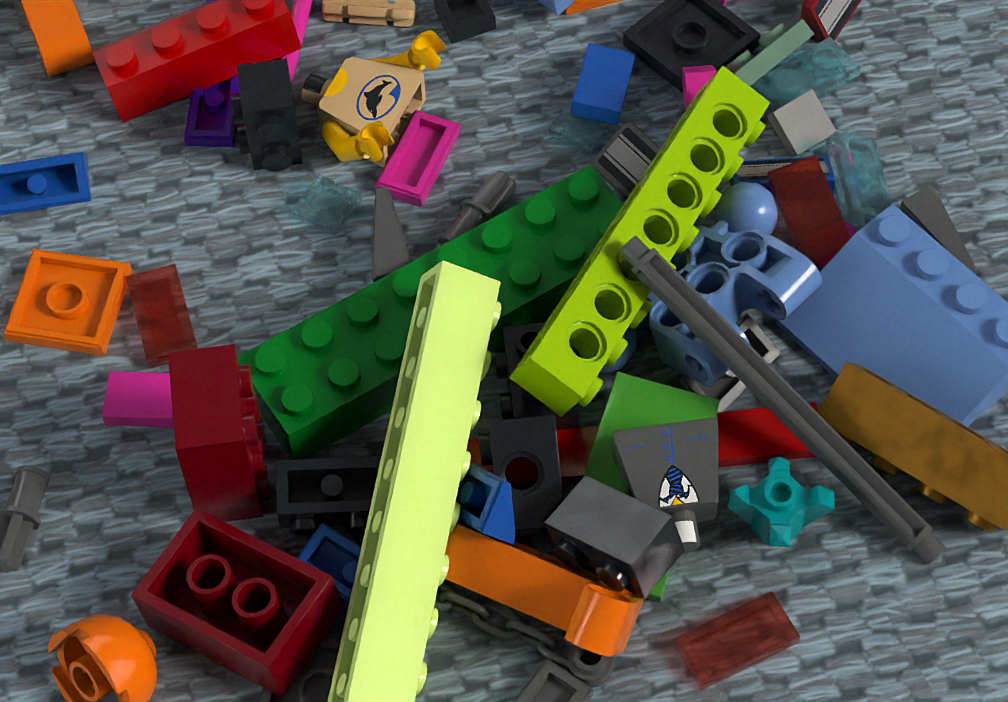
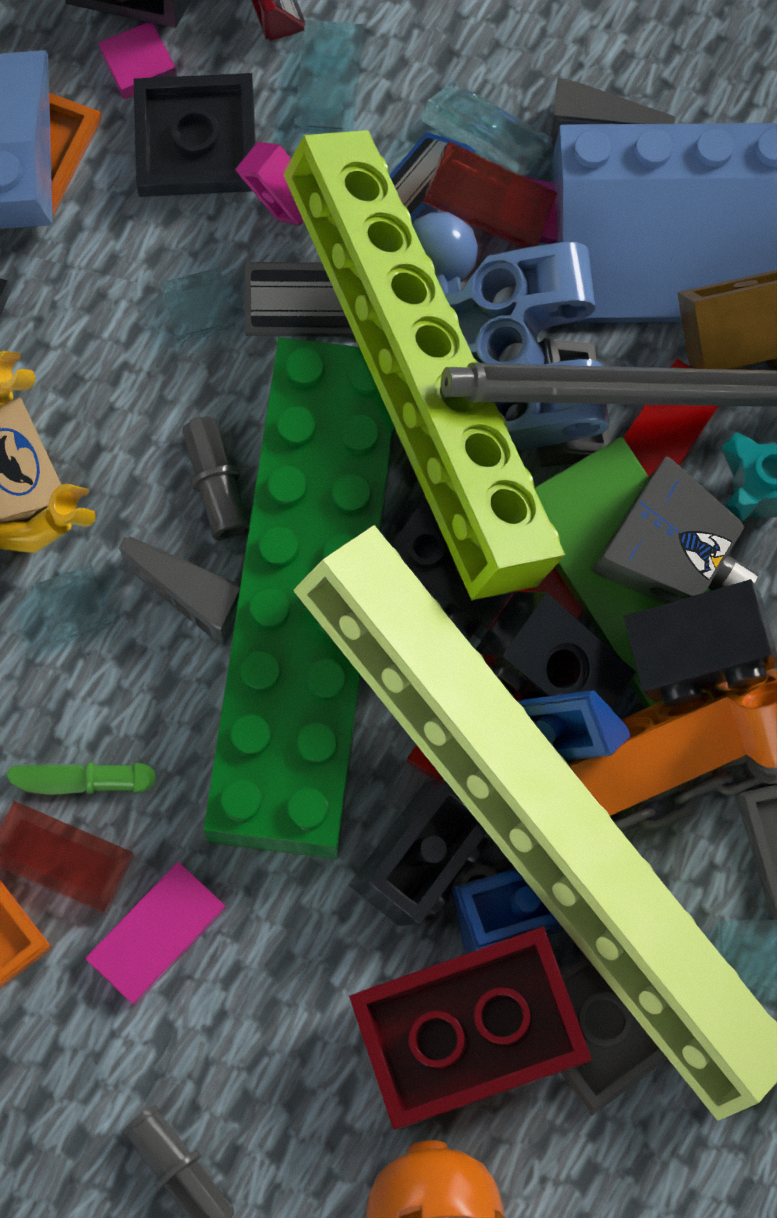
camera: 55 degrees left, 15 degrees up
(218, 432) = (289, 911): dark red brick -> none
(222, 290) = (76, 778): none -> bright green piece
(418, 157) = (88, 459): dark pink tile -> none
(602, 84) = (176, 250): blue tile -> none
(777, 45) = (282, 89): sand green plate -> none
(801, 123) = (384, 117): light grey tile -> none

